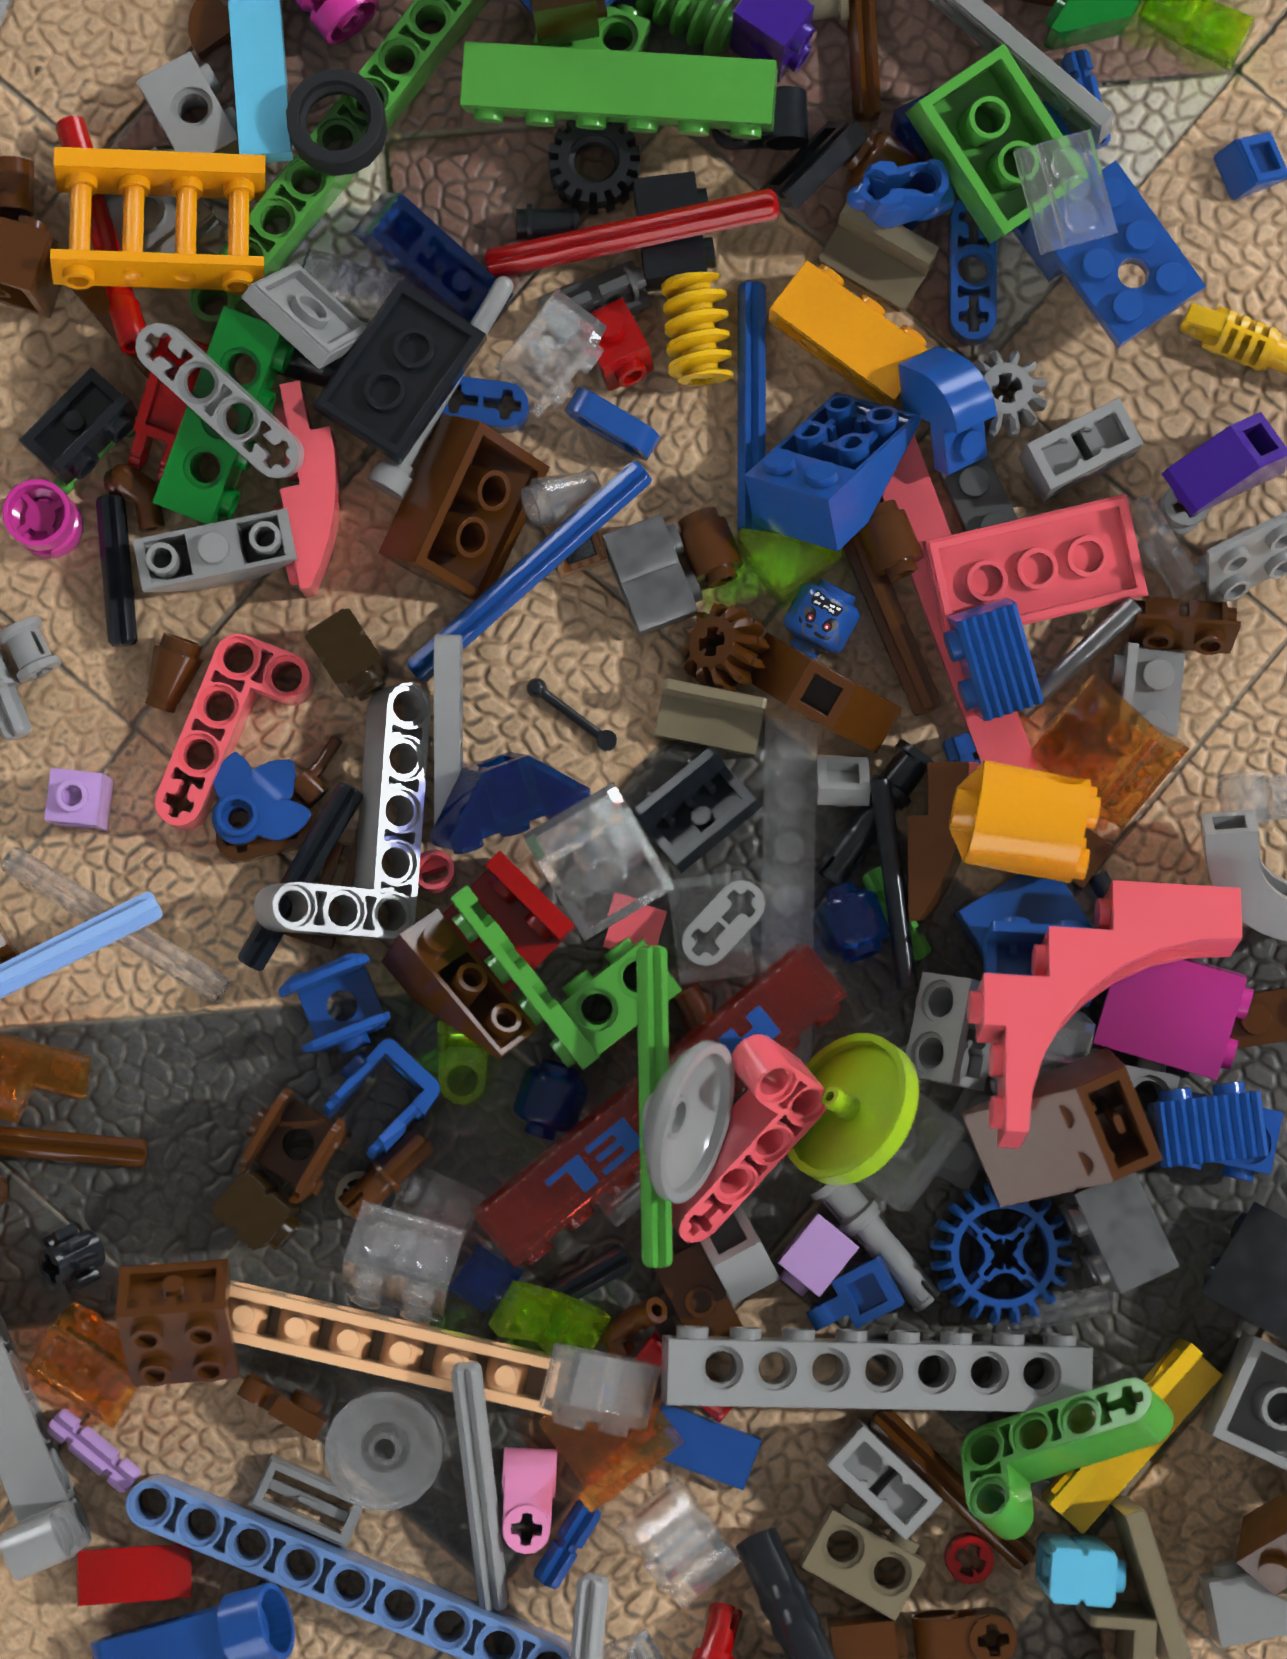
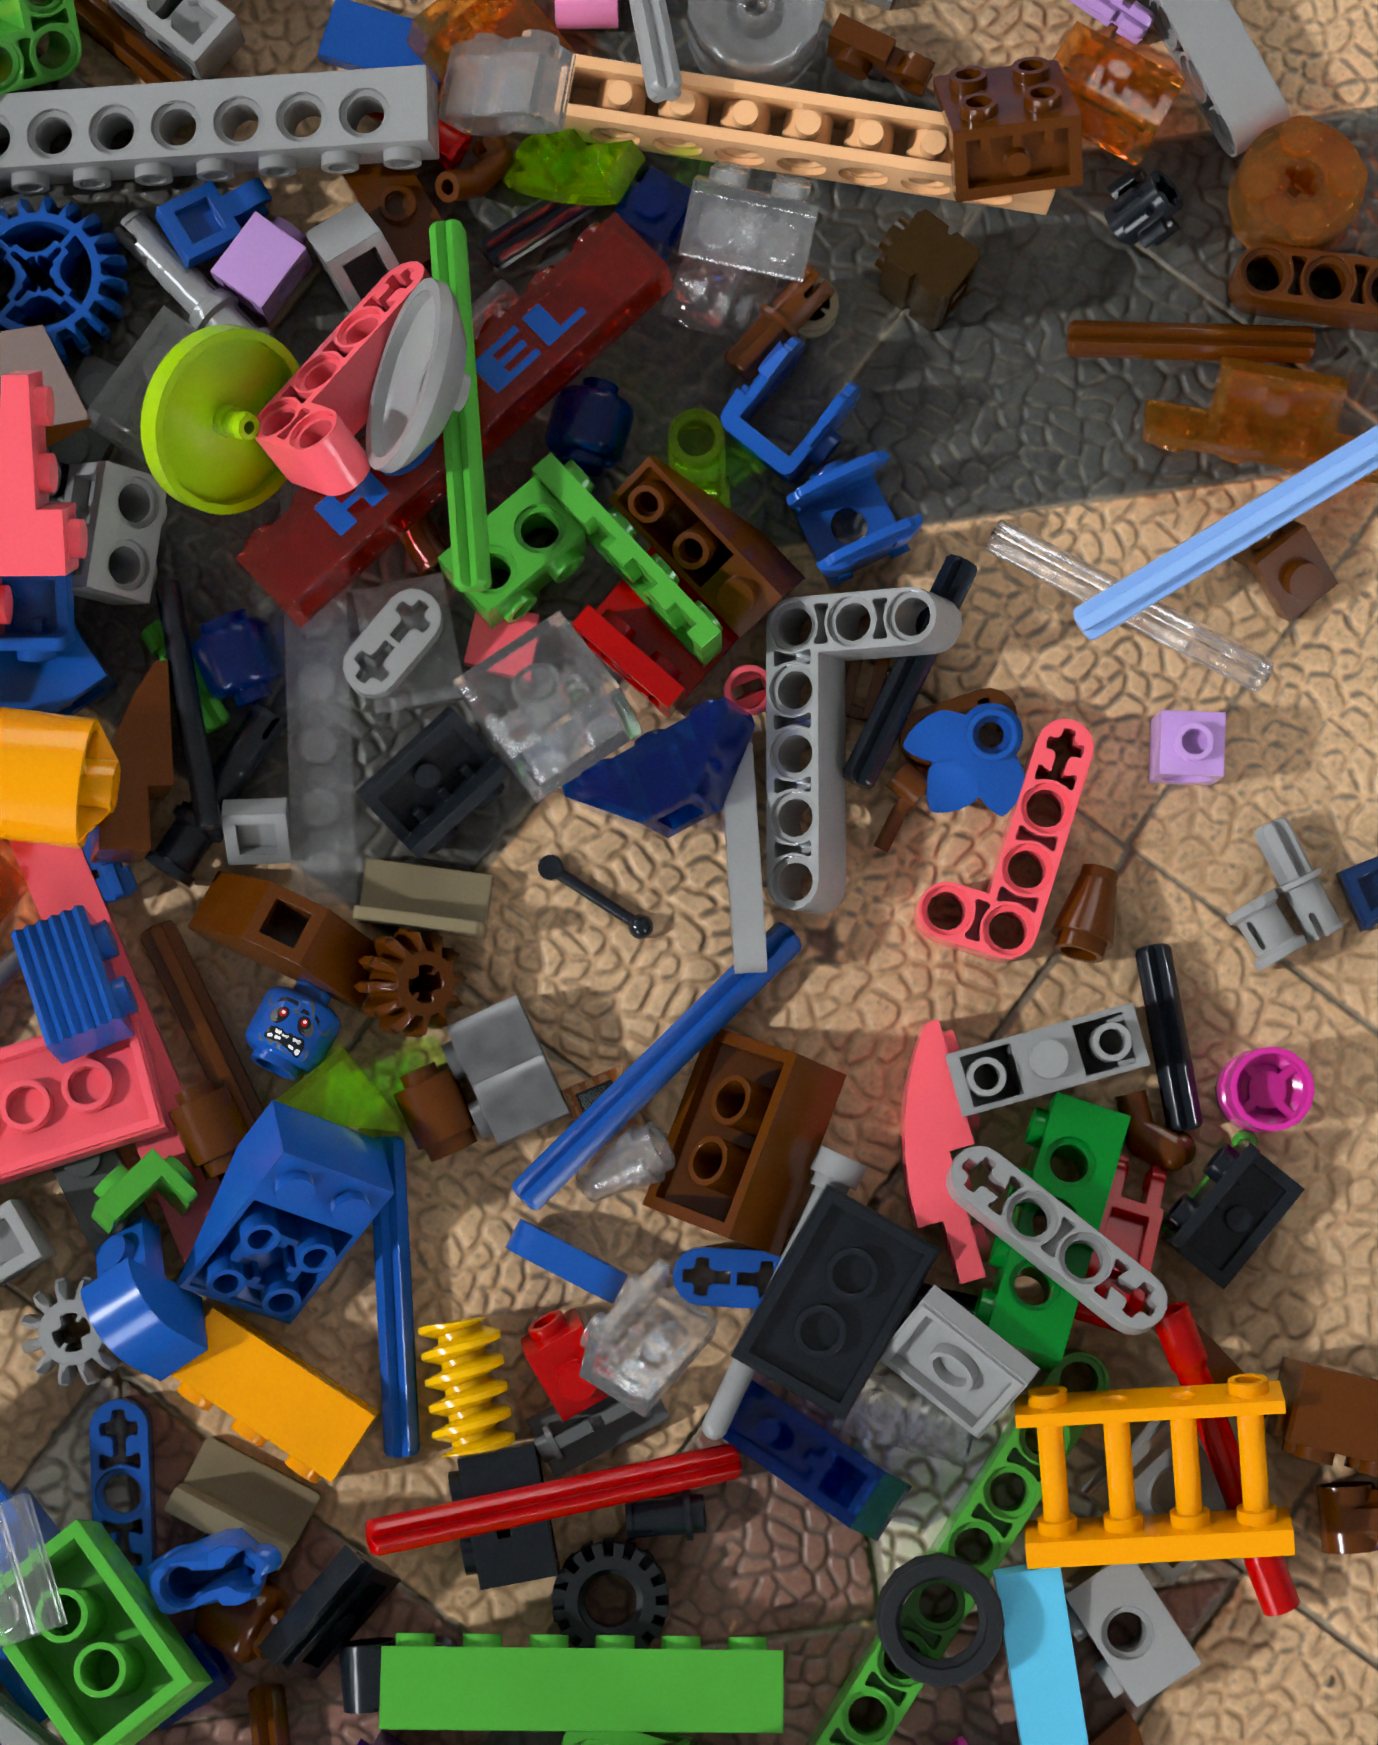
camera: 175 degrees right, 0 degrees up
(268, 1137) = (875, 328): reddish brown piece -> none
(348, 655) = (871, 937): dark brown brick -> none
(958, 494) = (126, 1190): none -> bright green bracket

